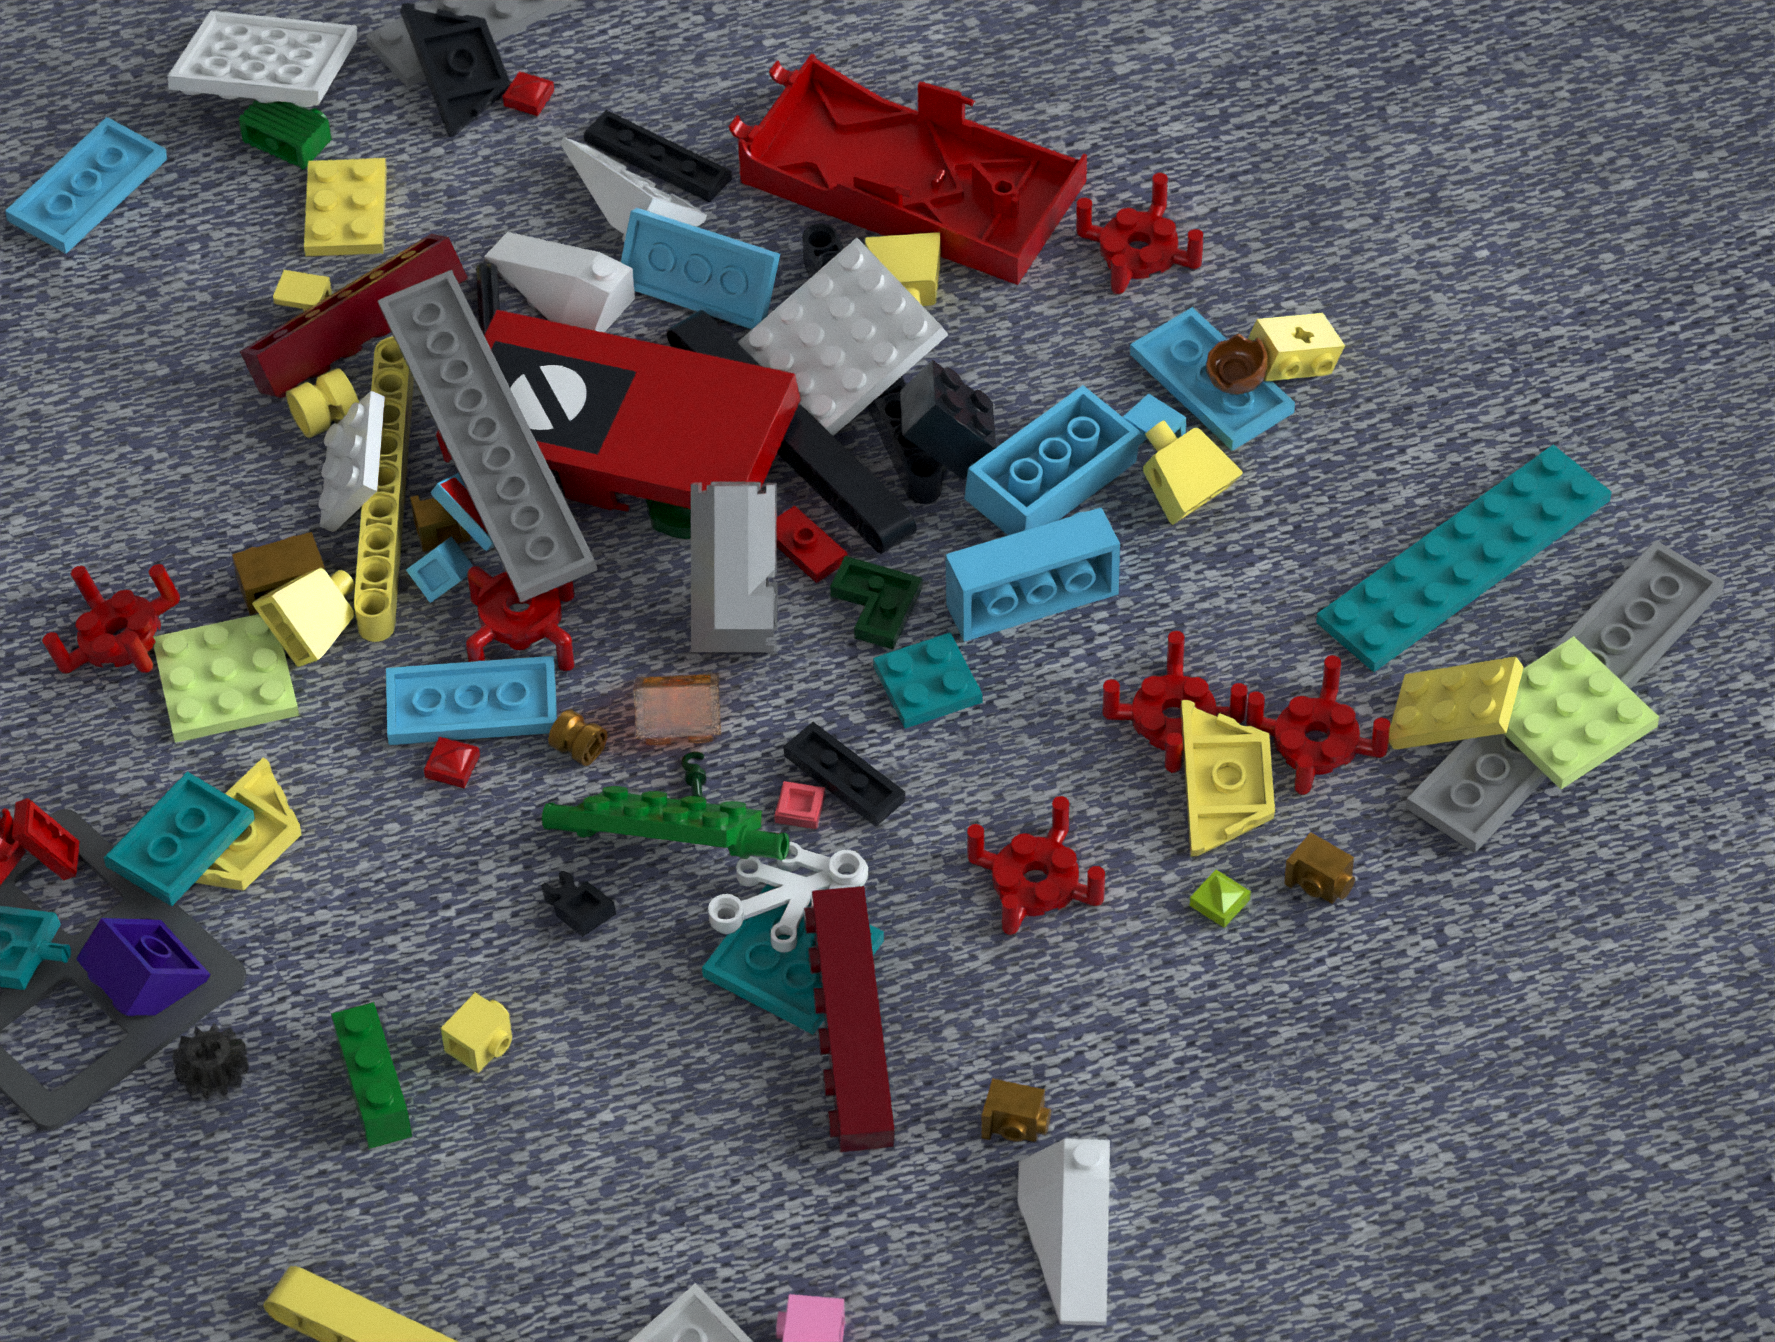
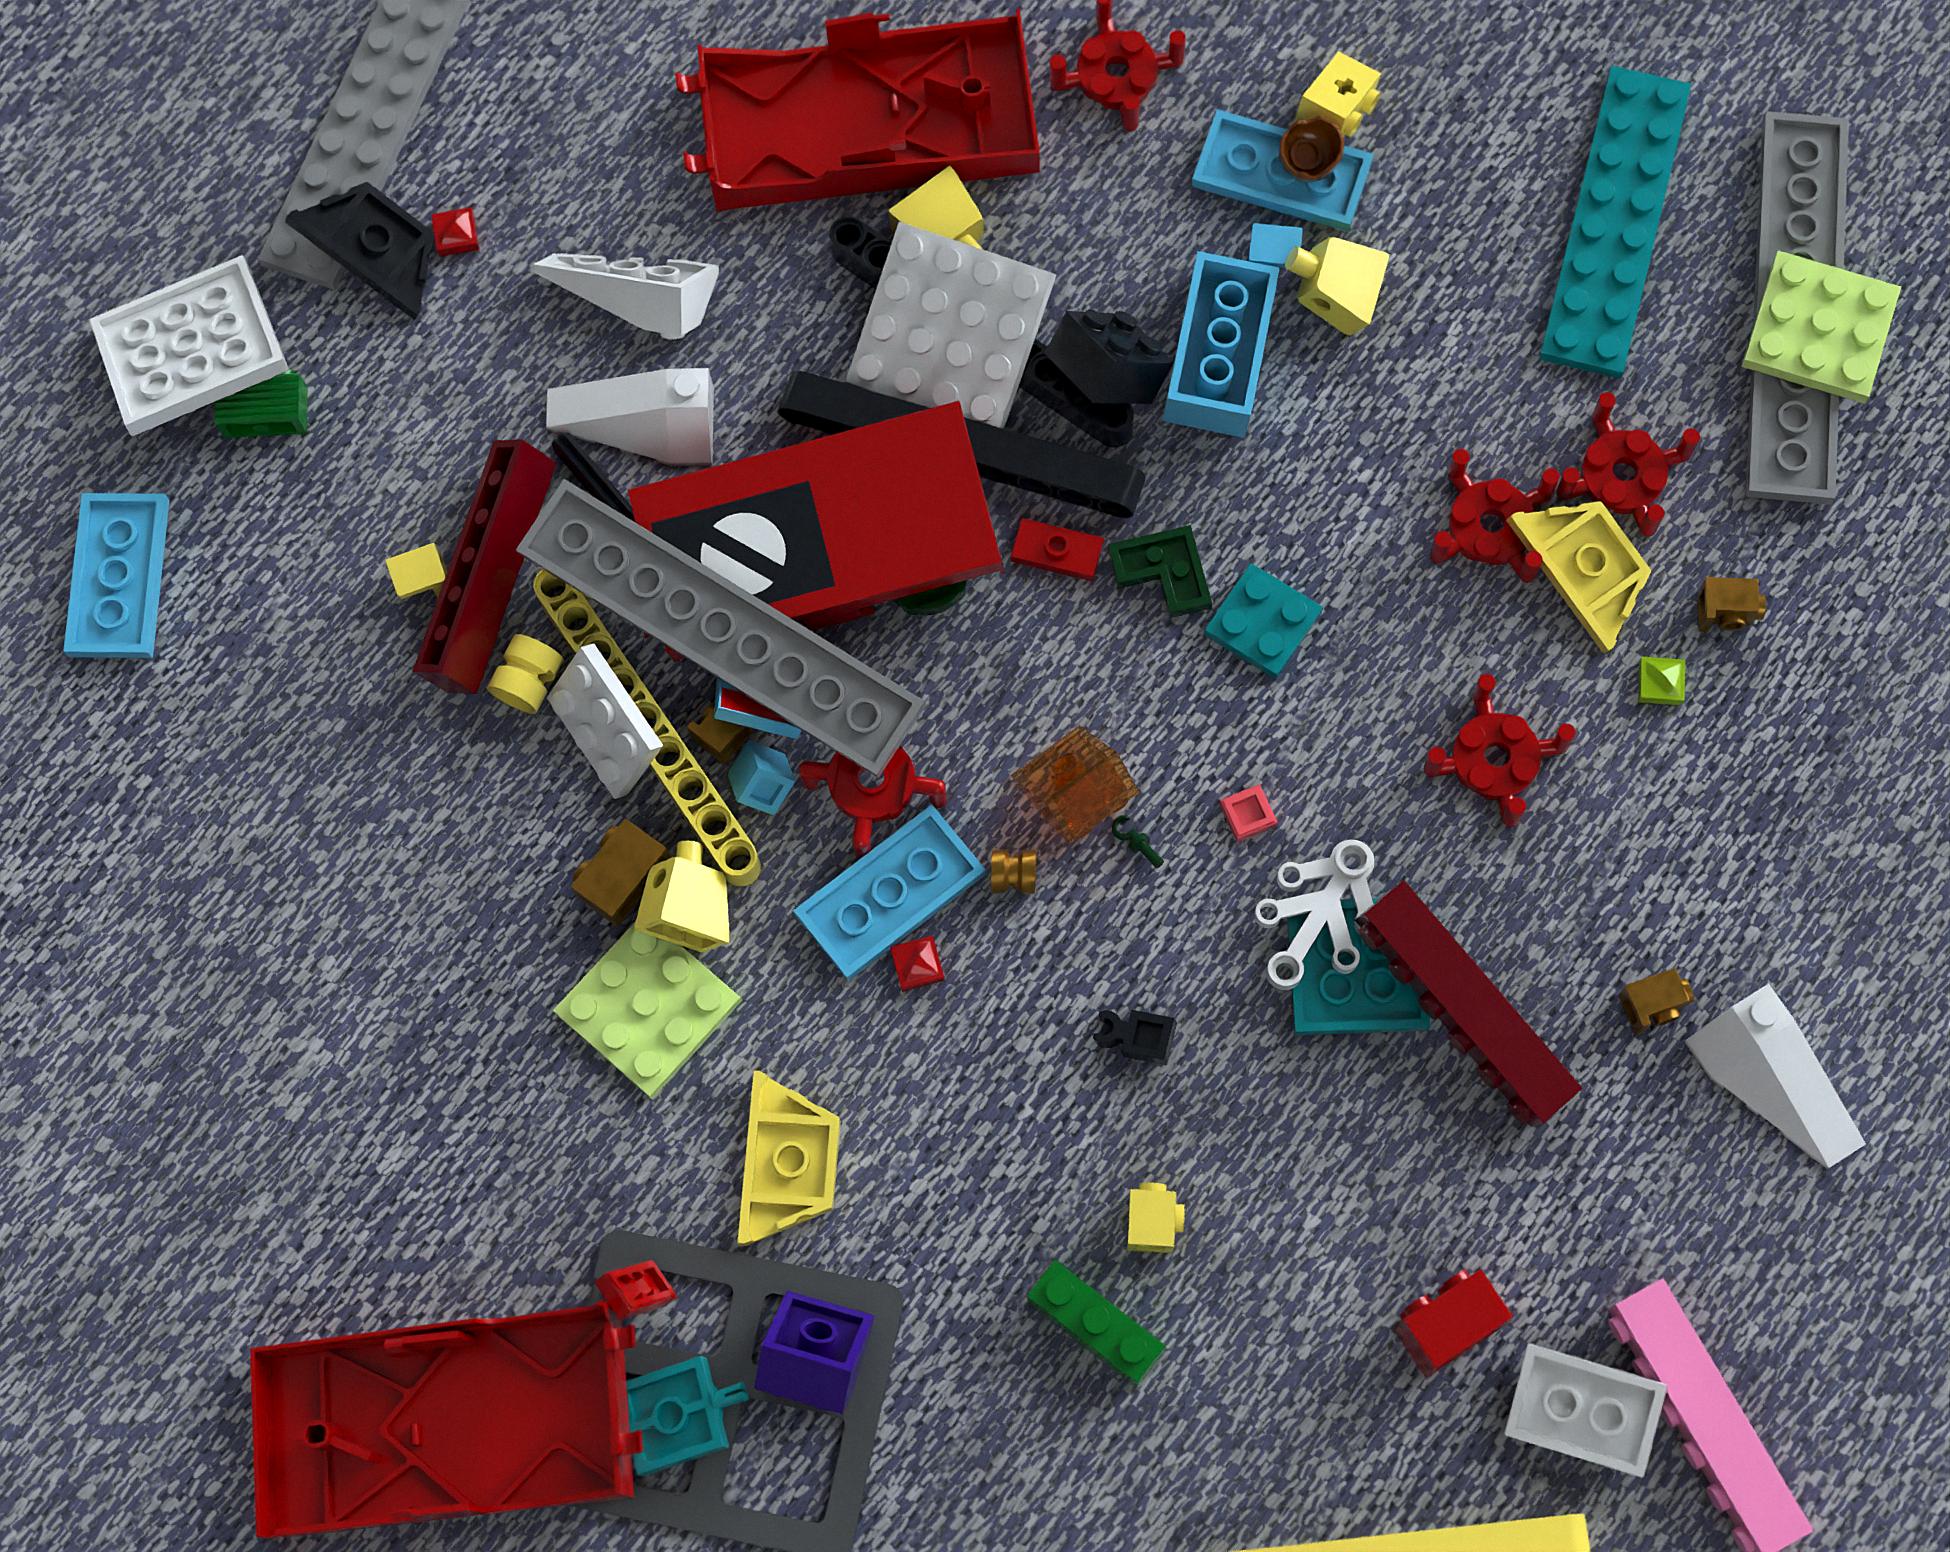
camera: 30 degrees left, 20 degrees up
(108, 616) = (494, 1019): red plate -> none
(179, 838) = (746, 1203): teal tile -> none
(210, 1061) = (928, 1406): clear smoke gear -> none
(345, 207) = (378, 451): light yellow plate -> none
(646, 1229) = (1453, 1322): none -> red brick
(657, 156) = (623, 228): black tile -> none
(669, 819) = (1166, 913): green plate -> none
(699, 268) = (765, 330): medium azure plate -> none
(731, 567) = (1042, 624): light grey brick -> none
(844, 774) = (1266, 760): black plate -> none
(1032, 574) = (1290, 465): medium azure brick -> none
(1455, 703) = (1730, 374): light yellow plate -> none

